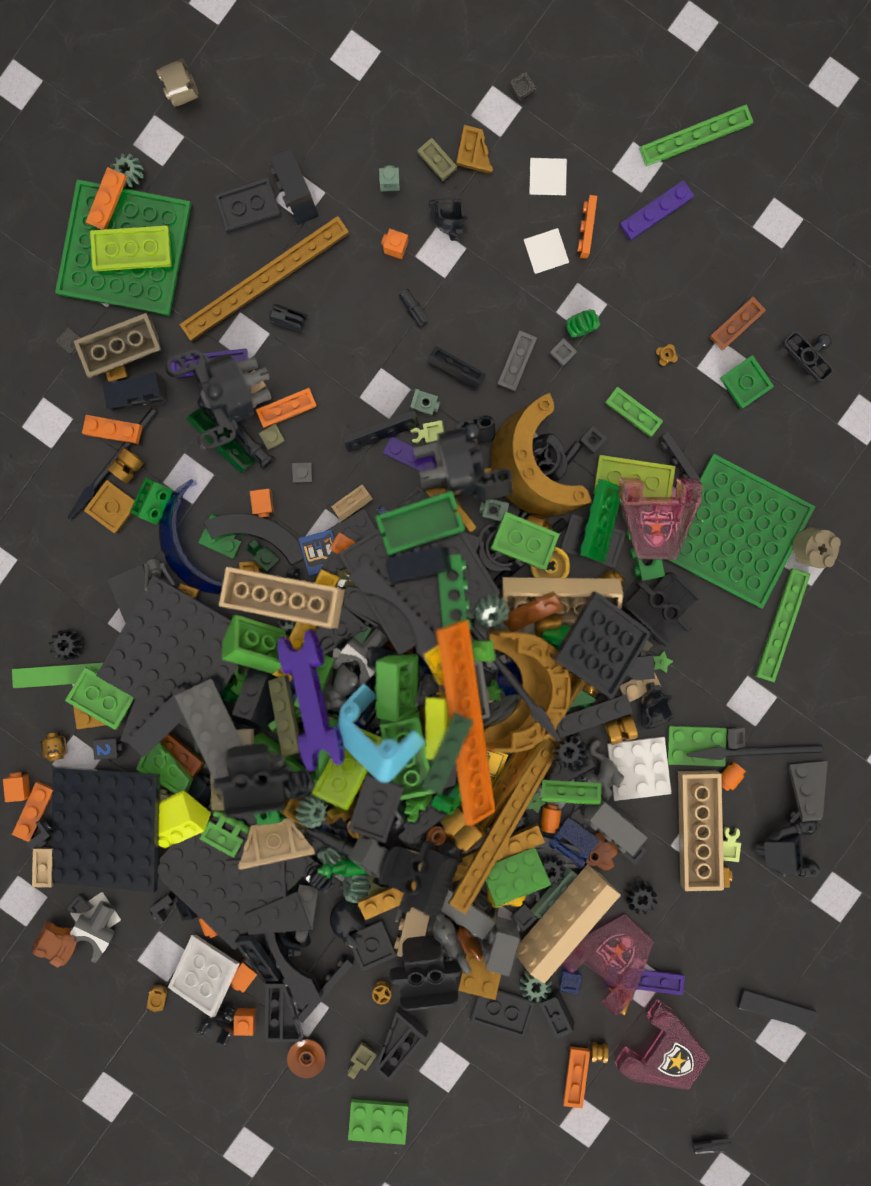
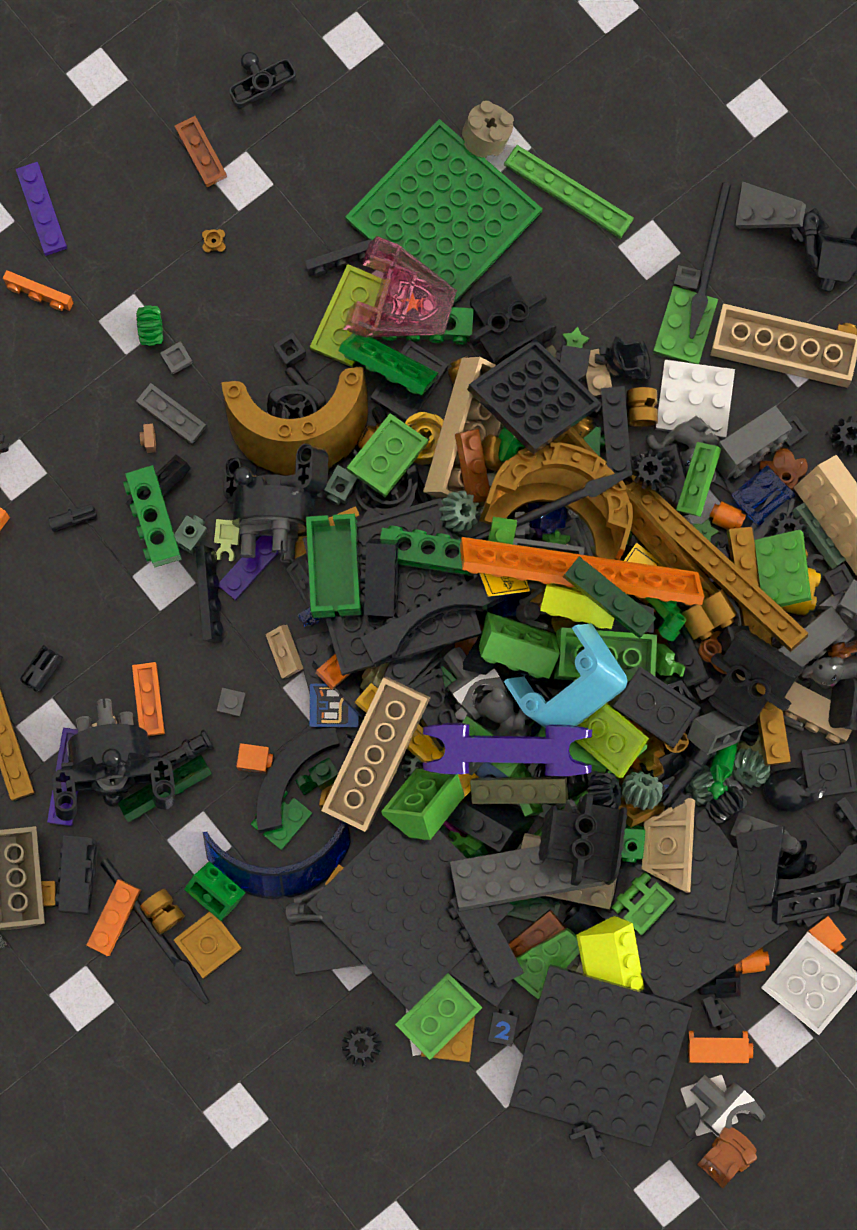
camera: 75 degrees left, 10 degrees down
(16, 787) = (521, 1156): orange brick -> none
(33, 811) = (558, 1146): orange plate -> none
(42, 867) = (630, 1150): tan plate -> none
(50, 675) = (394, 1074): bright green tile -> none
(53, 747) = (483, 1095): pearl gold head -> none
(135, 916) = (719, 1049): none -> orange brick
(157, 998) = (829, 1053): pearl gold hair -> none
(272, 437) = (178, 727): olive plate -> none
(455, 358) = (168, 550): none -> green brick
(492, 348) = (148, 438): none -> medium nougat plate
(546, 251) = (50, 347): white sticker -> none
(634, 412) = (270, 295): bright green plate -> none
(731, 847) = (817, 316): yellowish green plate -> none
(732, 776) = (732, 293): orange brick -> none
(746, 382) = (272, 158): green plate -> none

